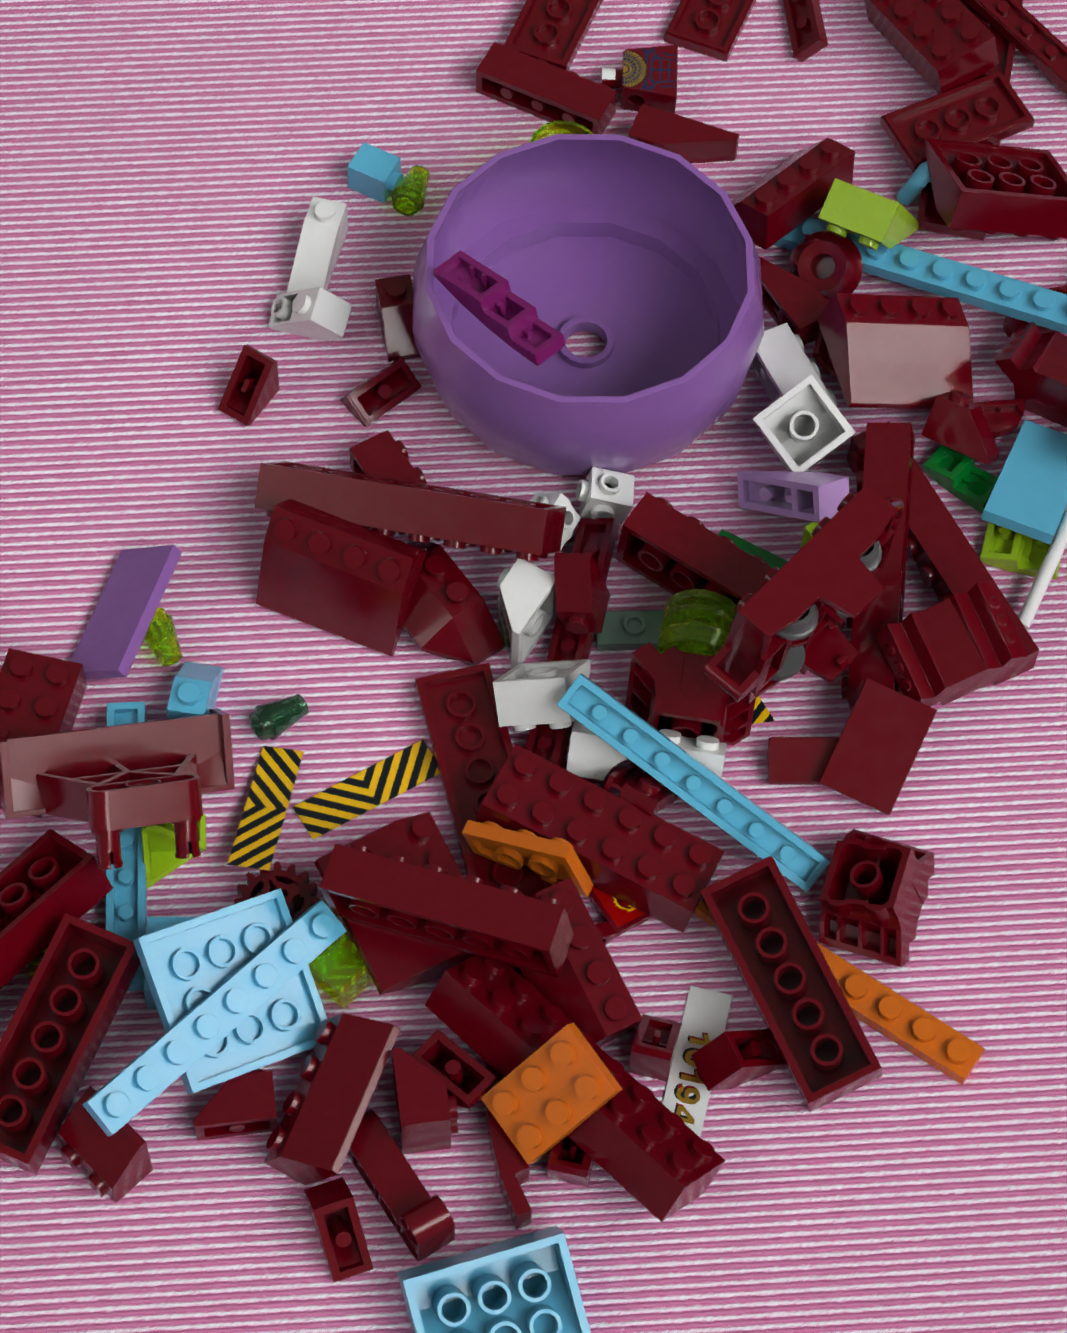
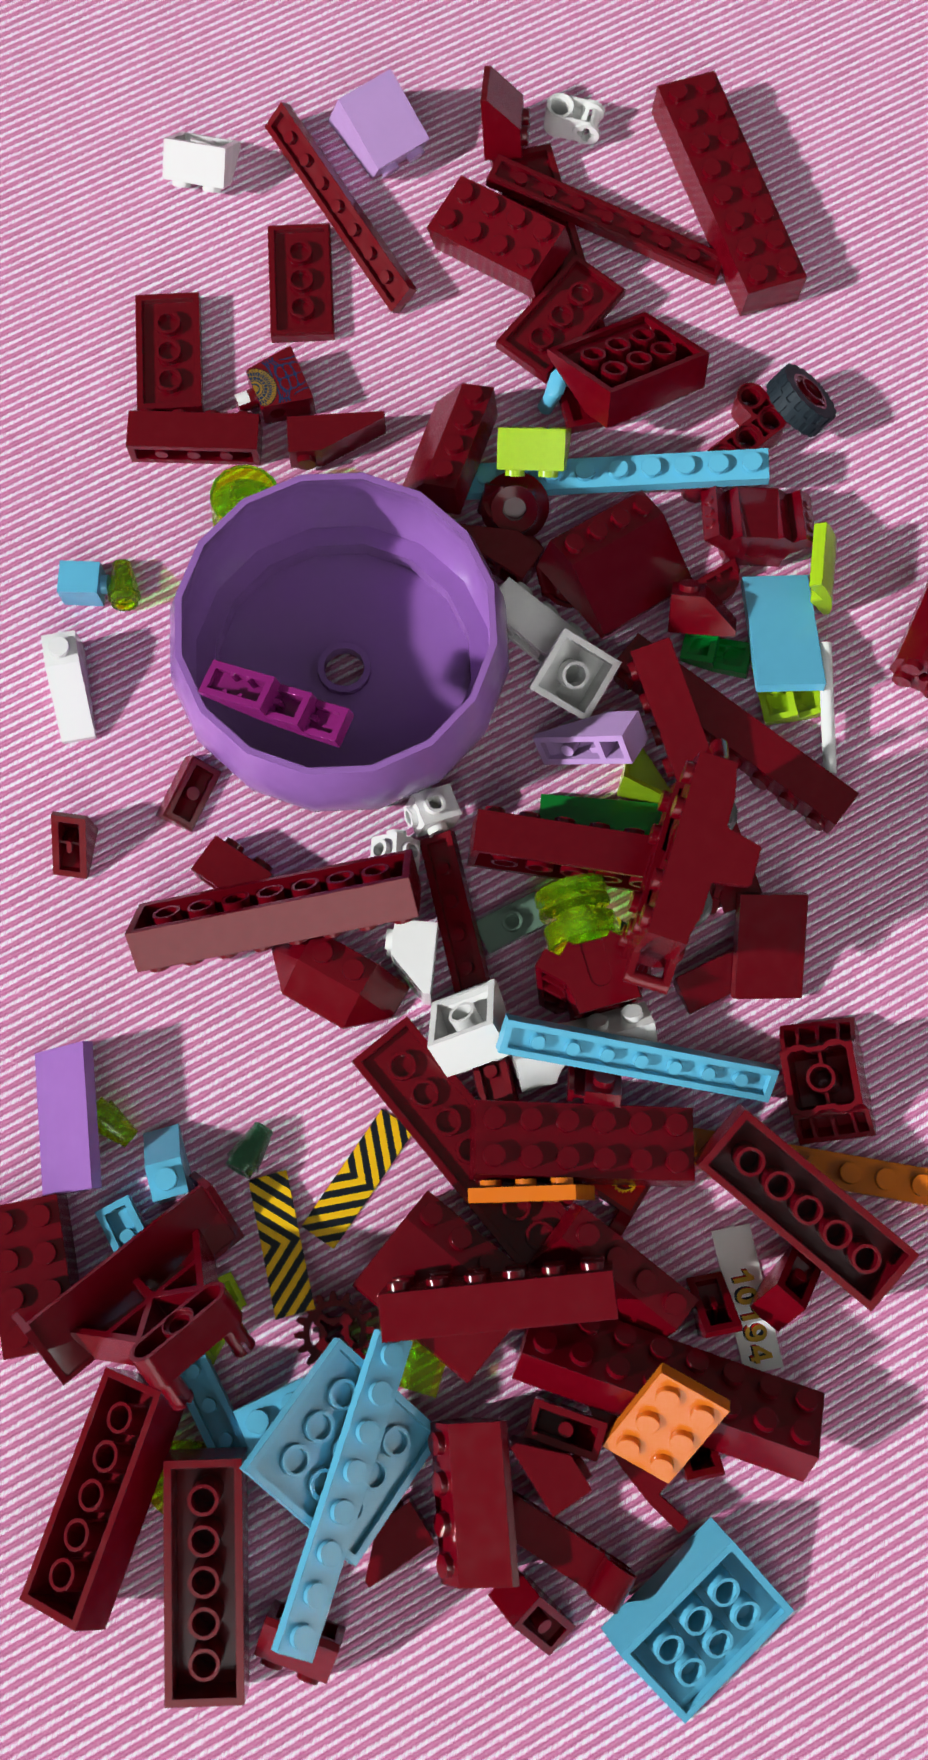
camera: 25 degrees left, 15 degrees up
(310, 314) = (92, 749): white slope -> none
(337, 575) = (240, 998): dark red slope -> none
(395, 315) = (168, 715): dark red slope -> none
(580, 593) = (461, 926): dark red slope -> none
(952, 646) = (800, 829): dark red slope -> none

